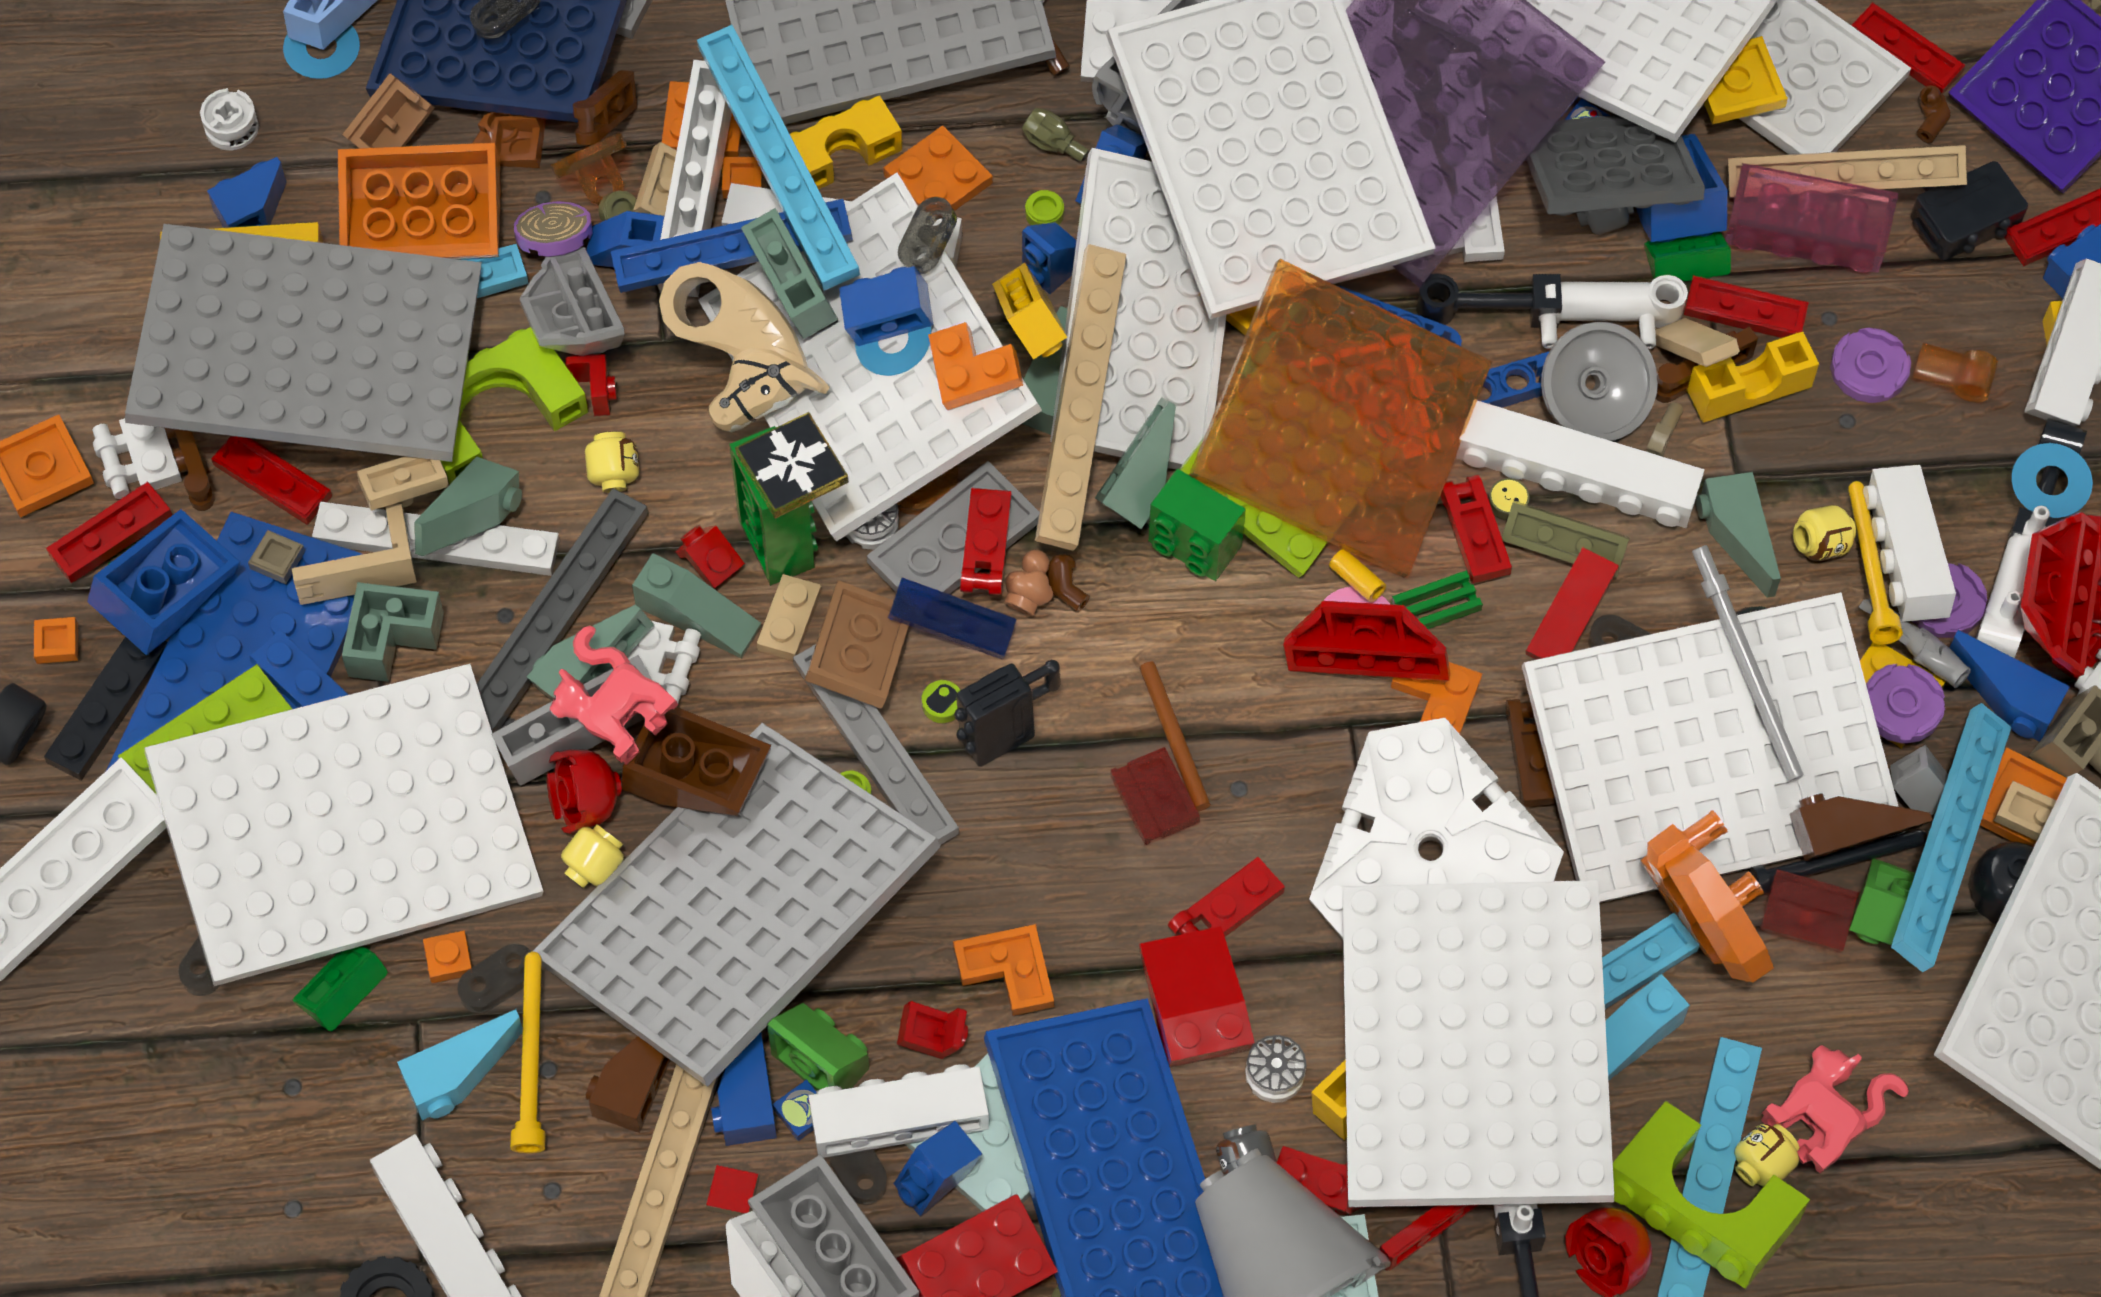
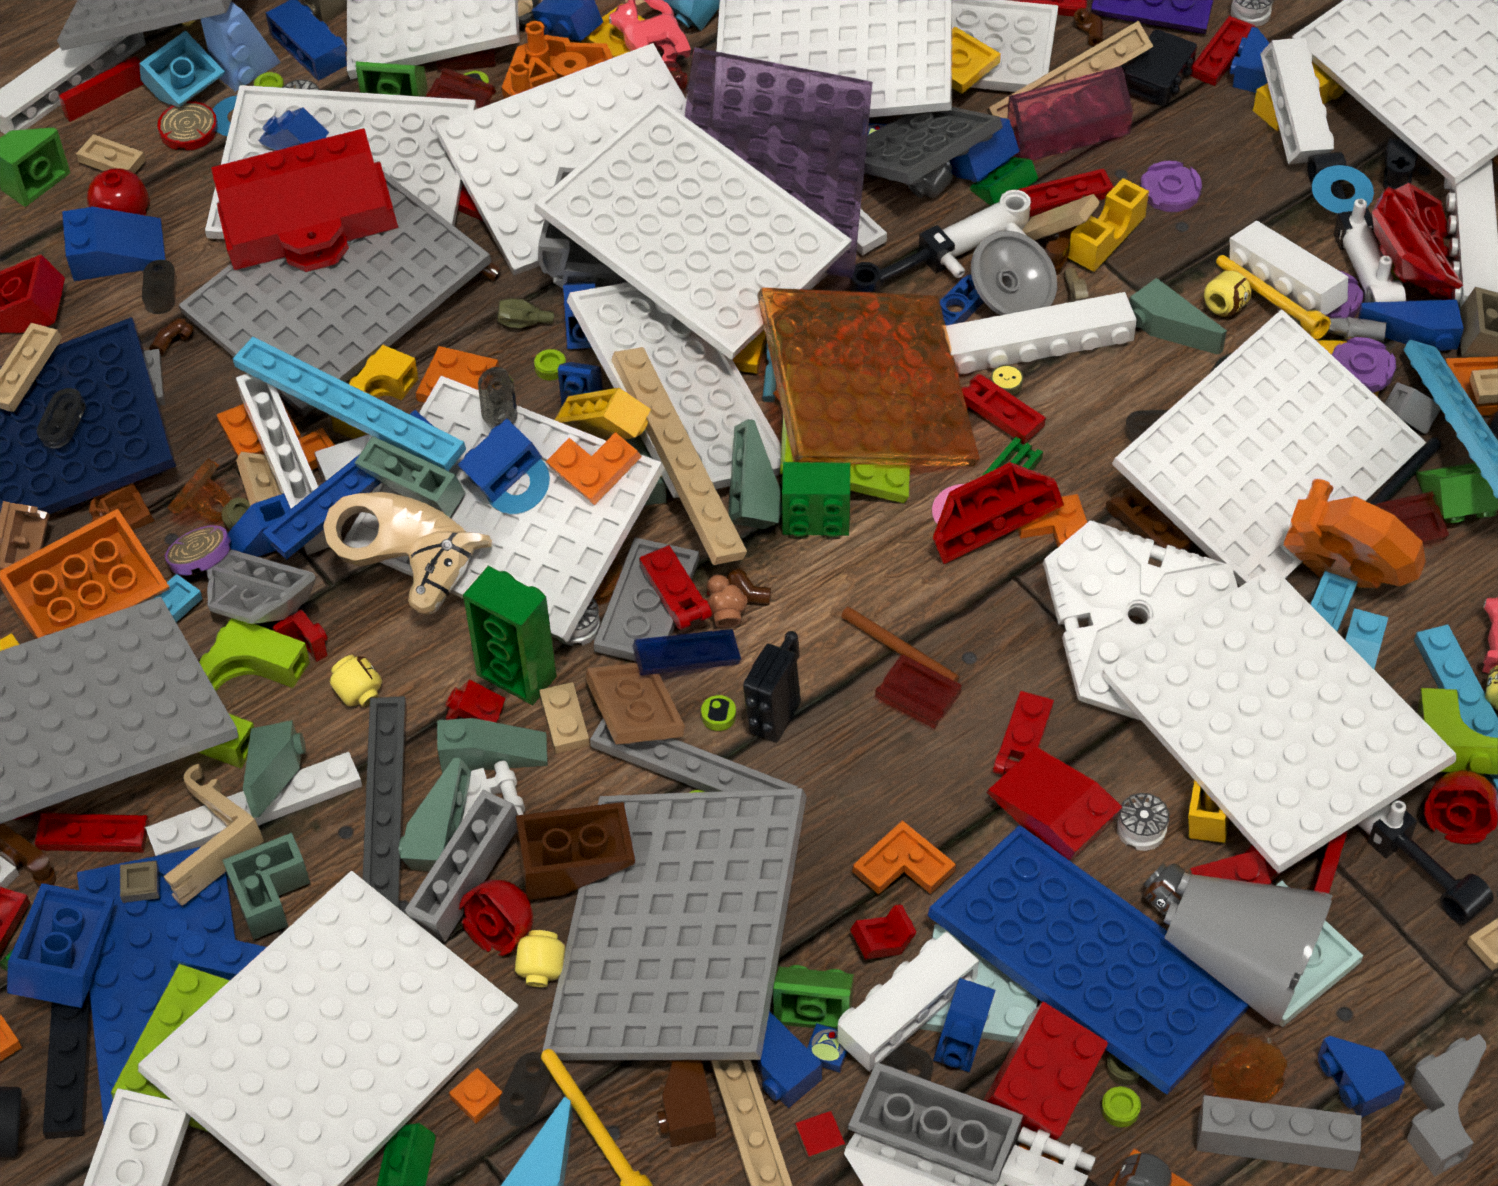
camera: 30 degrees left, 10 degrees down
(401, 480) = (206, 771): tan plate -> none
(605, 108) = (184, 449): reddish brown plate -> none
(615, 701) = (494, 821): coral animal -> none
(792, 465) = (522, 582): tile -> none
(1357, 575) = (944, 477): yellow axle -> none
(1560, 535) = (1065, 382): olive plate -> none
(1573, 606) = (1104, 421): red tile -> none
(1716, 588) = (1205, 344): light grey bar -> none
(1847, 822) = (1390, 452): reddish brown slope -> none
(1967, 373) = (1236, 158): clear orange piece -> none

